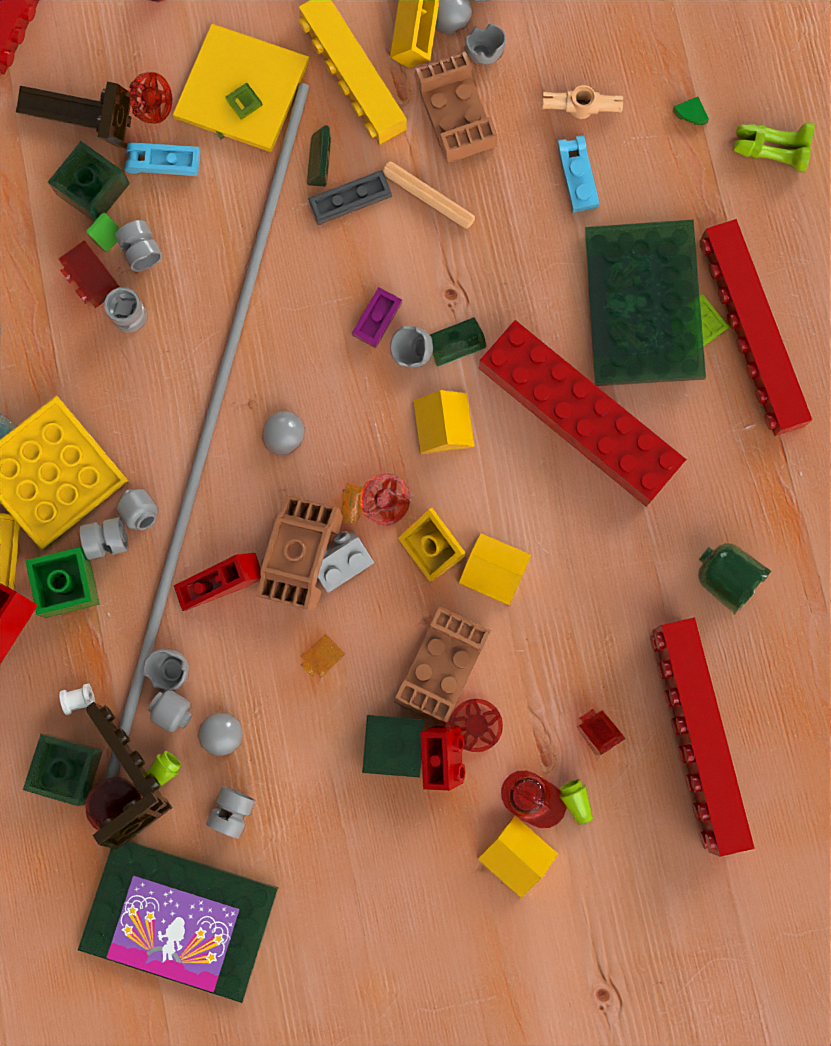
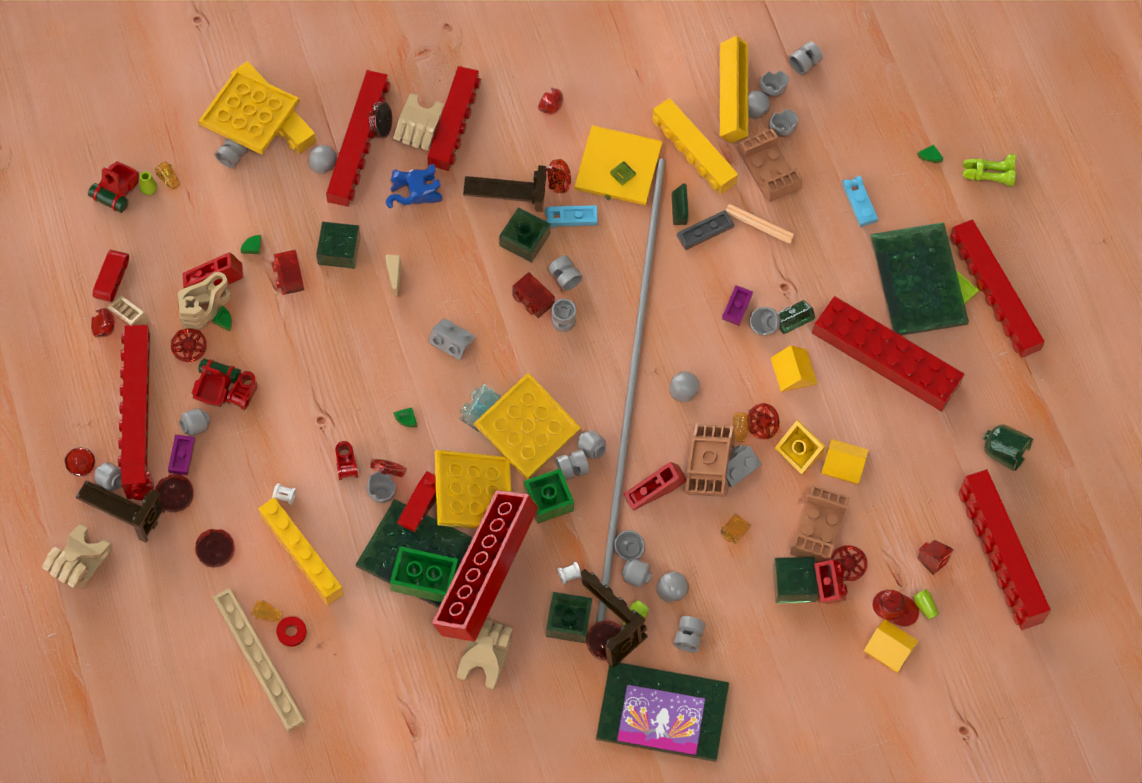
camera: 15 degrees left, 15 degrees down
(103, 232) = (539, 267): bright green slope -> none
(595, 101) = (856, 148): light nougat pin -> none

